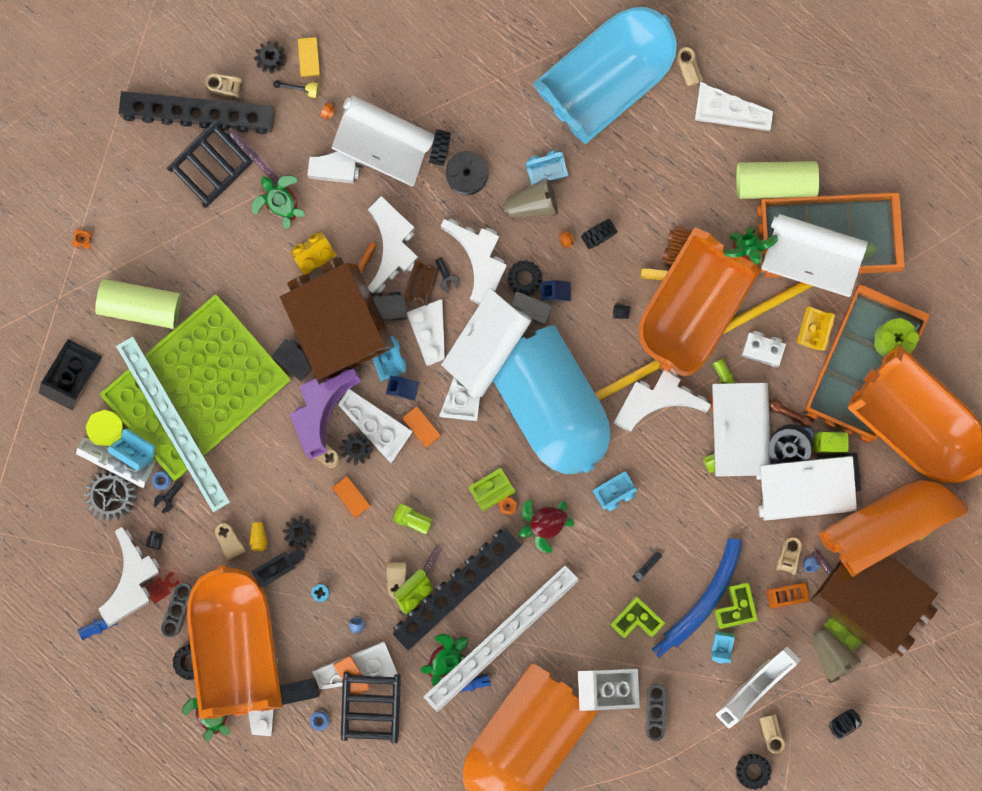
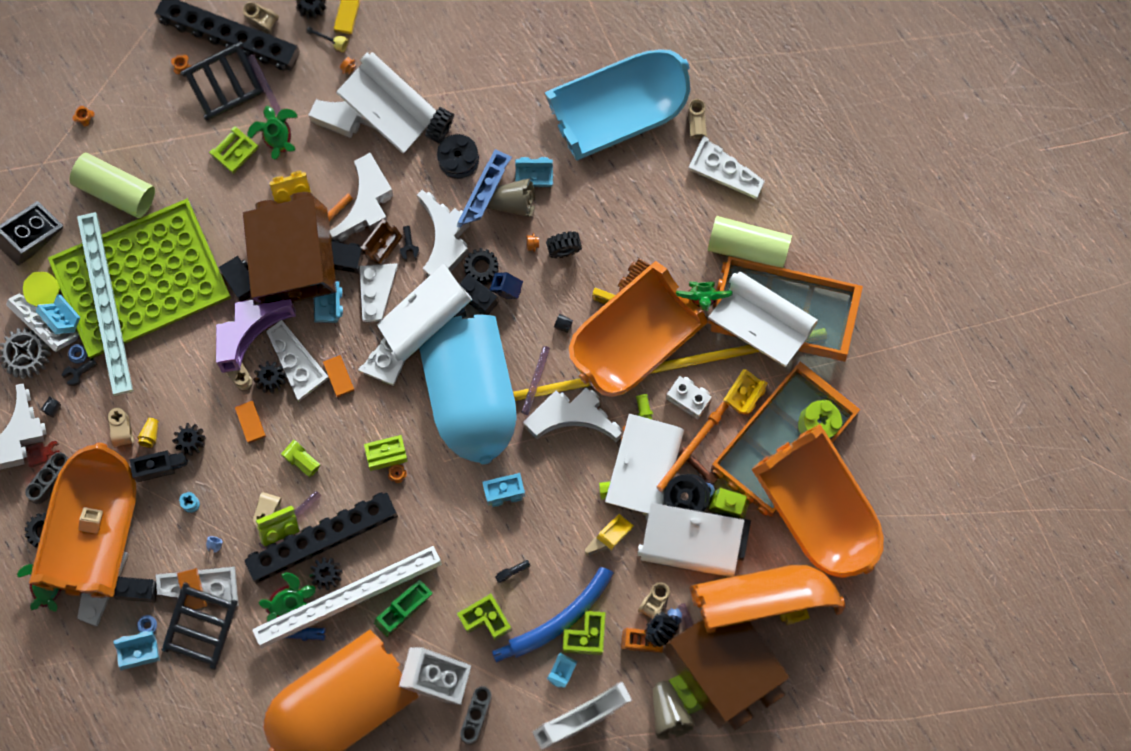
camera: 25 degrees right, 10 degrees down
(160, 152) = (177, 61): none -> orange plate
(232, 638) = (90, 520): none -> tan slope
(249, 232) = (238, 153): none -> lime plate
(319, 748) = (136, 650): none -> medium azure bracket
(402, 388) = (332, 333): dark blue brick -> none
(476, 627) = (328, 580): none -> black gear
(505, 200) = (484, 188): none -> medium blue wedge
(544, 524) = (426, 500): animal -> none
(555, 632) = (402, 608): none -> green slope
(612, 376) = (535, 380): none -> bar
(718, 519) = (595, 547): none -> tan slope
(732, 501) = (615, 531): none -> yellow tile
(792, 363) = (713, 419): none -> orange bar
(805, 582) = (661, 629): none -> black gear

